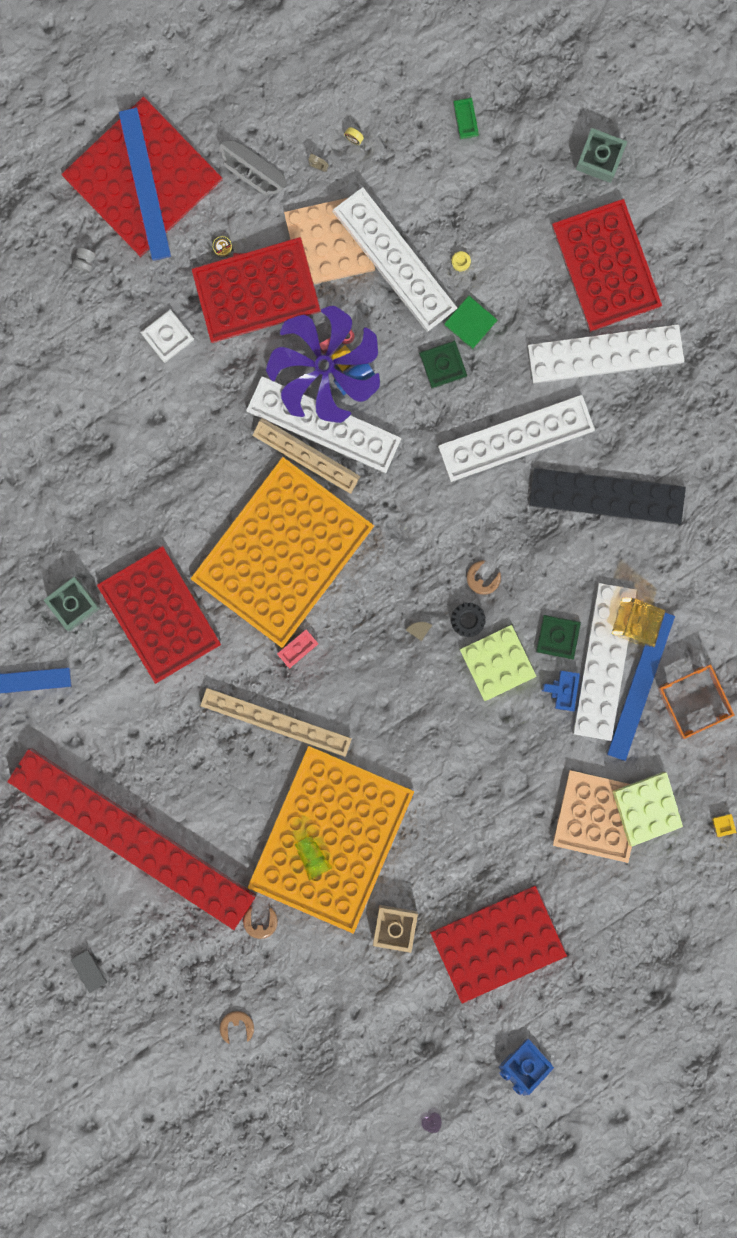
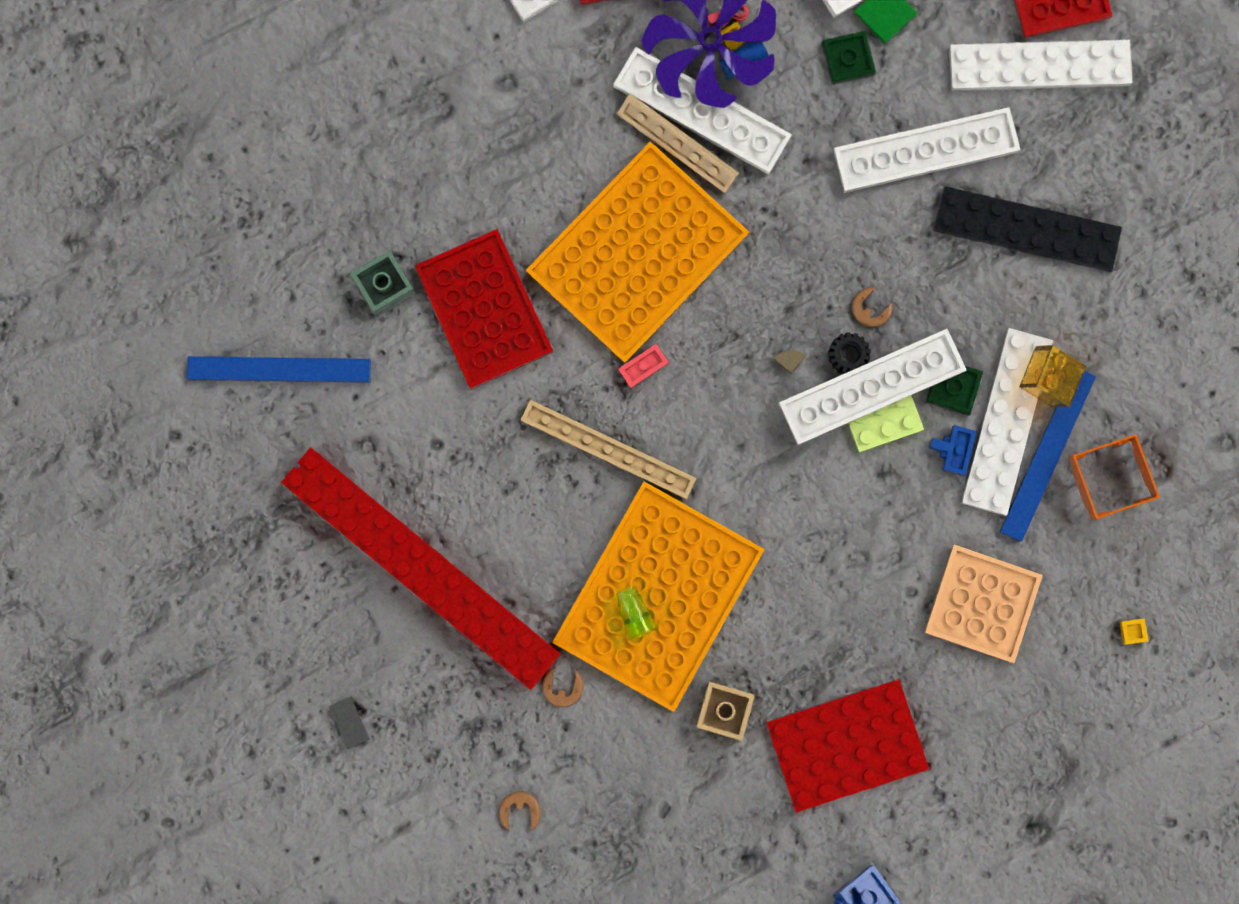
camera: 10 degrees right, 5 degrees down
(489, 647) = (872, 387): none -> white plate
(647, 809) = (1043, 600): yellowish green plate -> none

